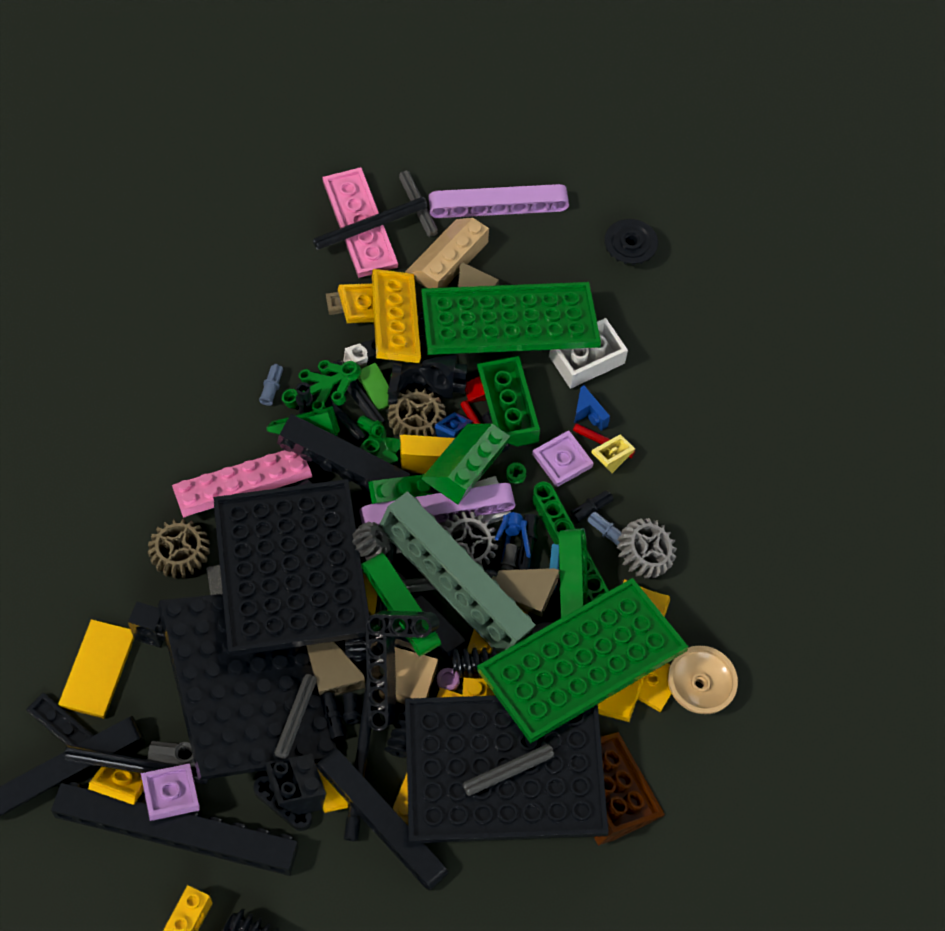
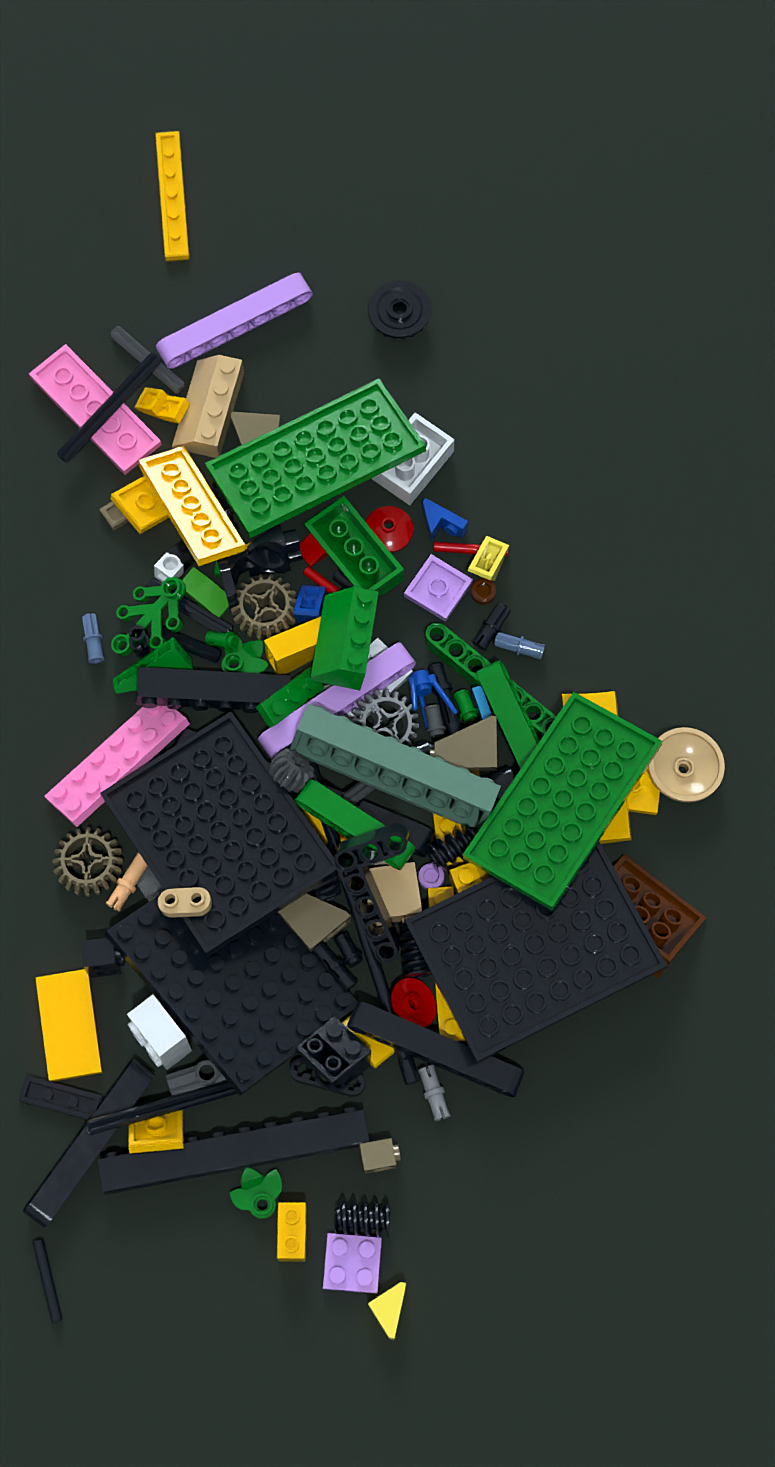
camera: 20 degrees left, 10 degrees up
(160, 702) = (158, 1033): none -> white brick
(170, 792) = (213, 1119): lavender plate -> none
(177, 869) = (257, 1189): none -> green plate
(199, 579) = (127, 883): none -> light nougat pin
(231, 605) = (183, 904): none -> tan plate
(292, 887) = (379, 1155): none -> dark tan brick
(295, 716) = (301, 985): dark grey axle -> none
(364, 856) = (434, 1093): none -> light grey pin
(389, 770) = (414, 1001): none -> red dish
(412, 240) = (160, 405): none -> yellow slope
(495, 99) = (172, 196): none -> yellow tile
(508, 769) = (542, 946): dark grey axle -> none
(511, 469) = (389, 622): green bush -> none
(541, 556) = (465, 706): none -> green pin
(547, 407) = (397, 536): none -> red dish
(598, 477) = (483, 591): none -> reddish brown tile
(657, 548) = (561, 653): light grey gear -> none

